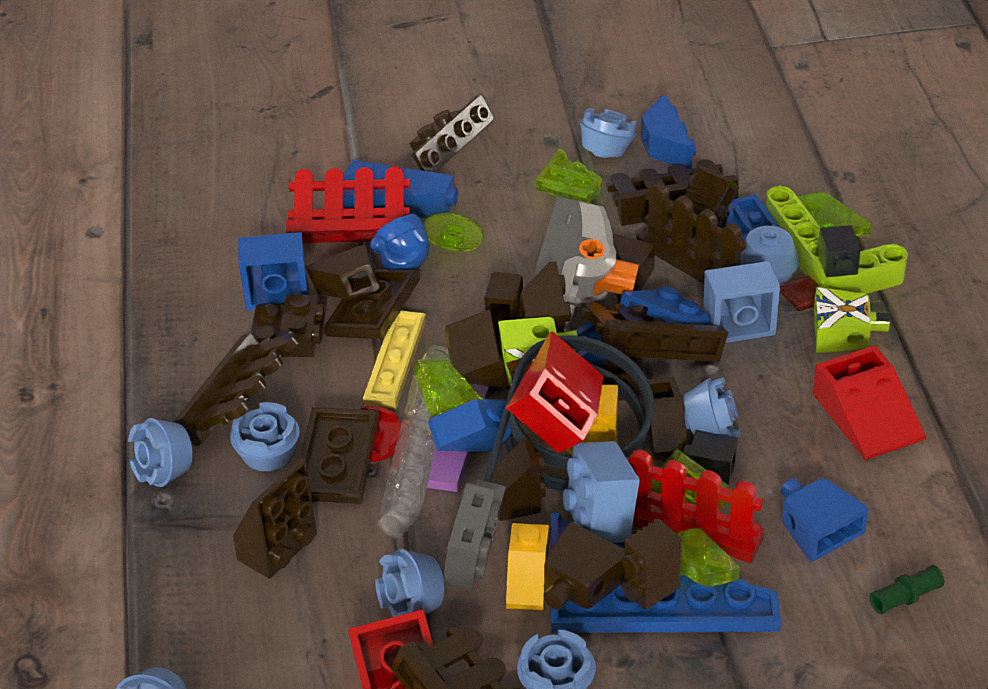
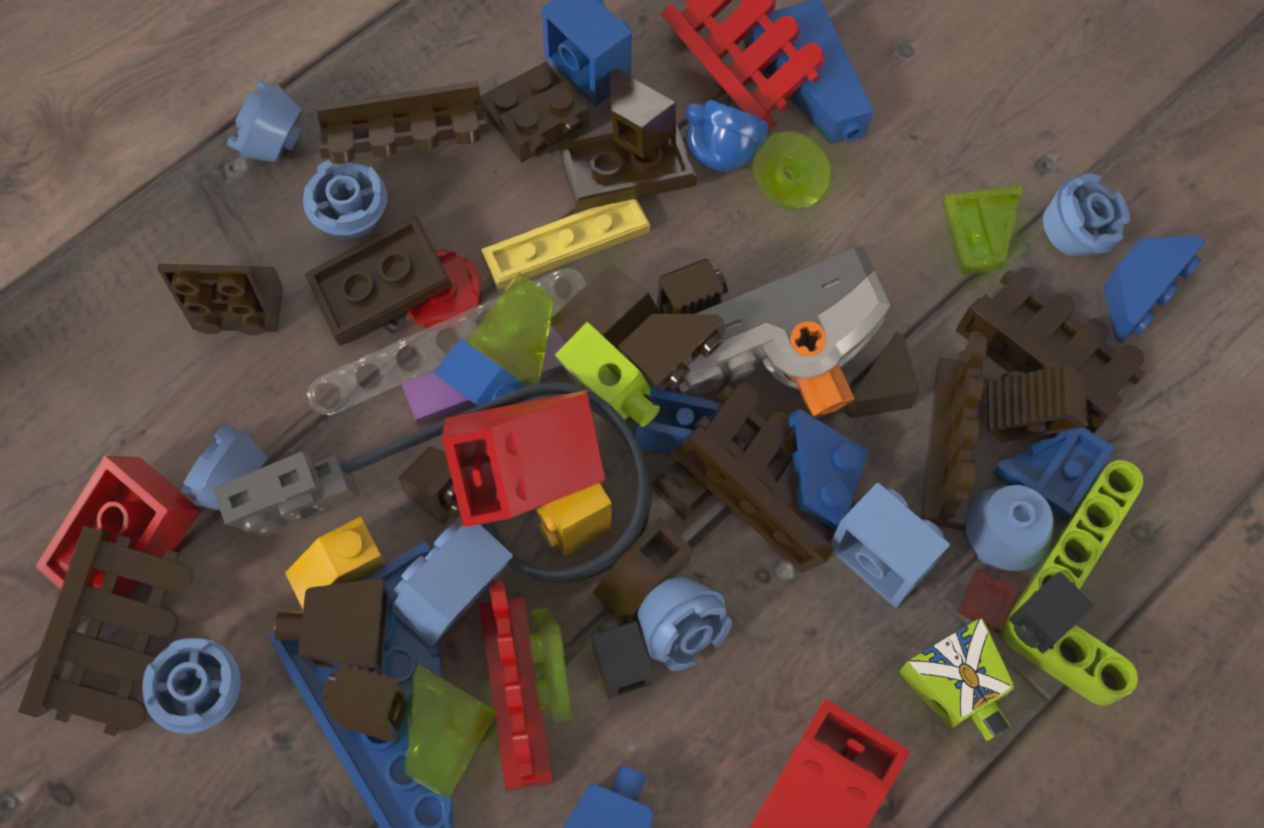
camera: 50 degrees right, 25 degrees up
(448, 134) = (956, 59): dark brown bracket -> none
(832, 213) = (1150, 554): clear neon green wing -> none

